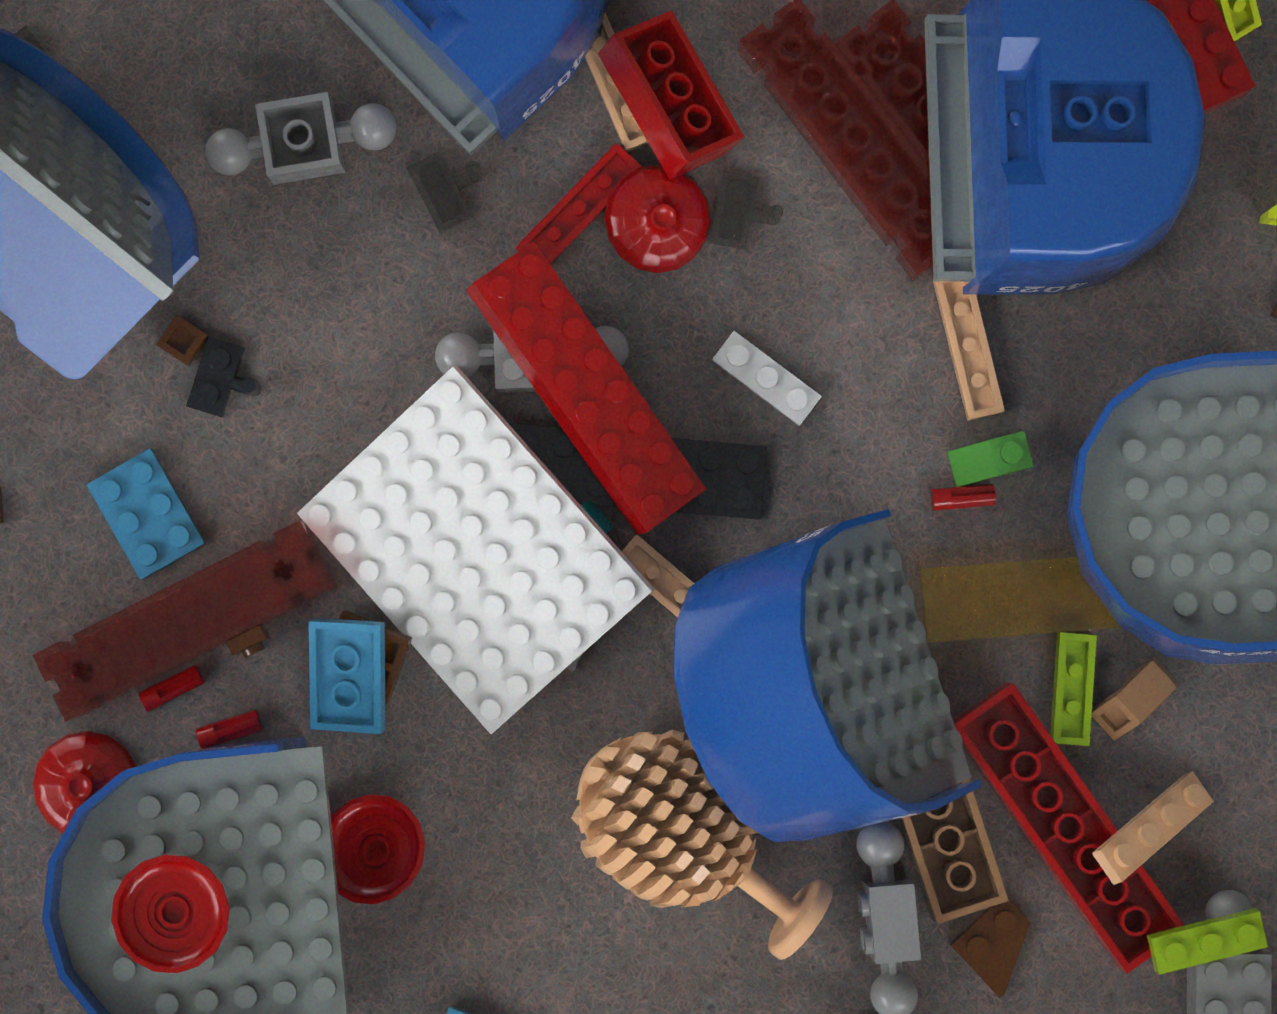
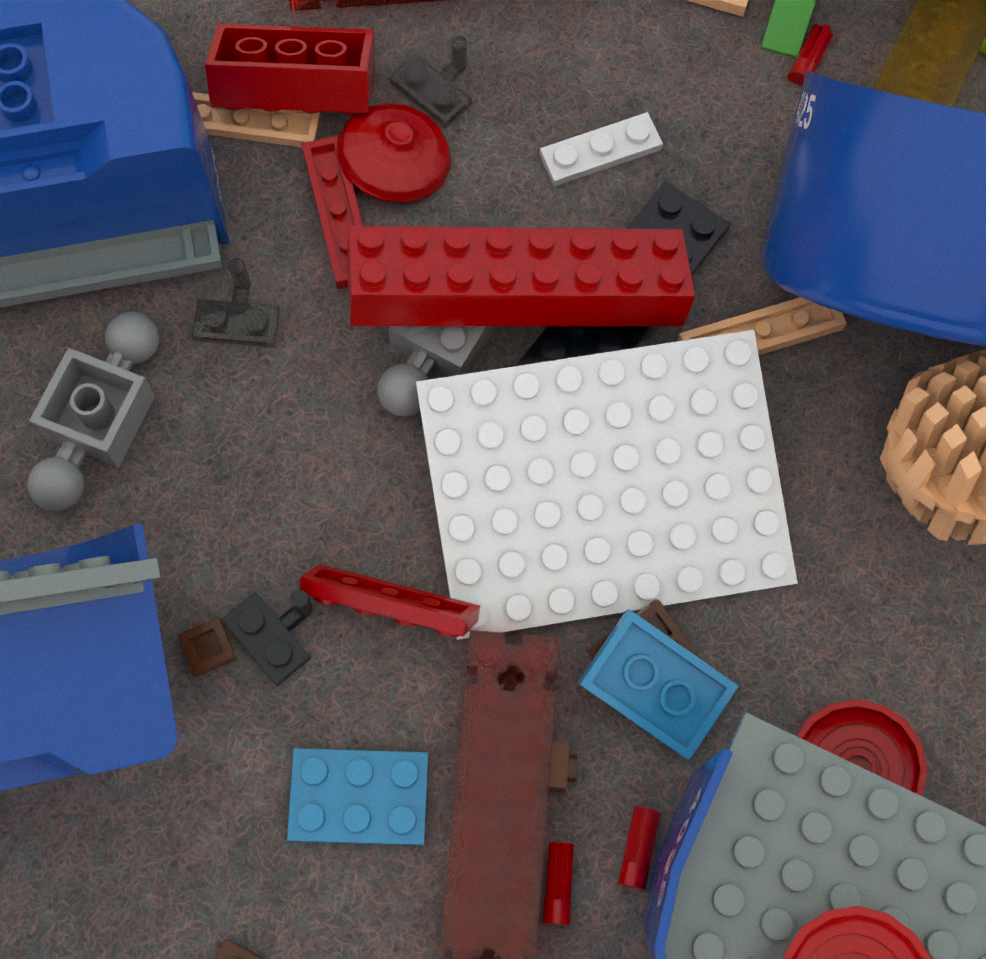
camera: 60 degrees left, 15 degrees down
(290, 448) = (381, 597): none -> red plate

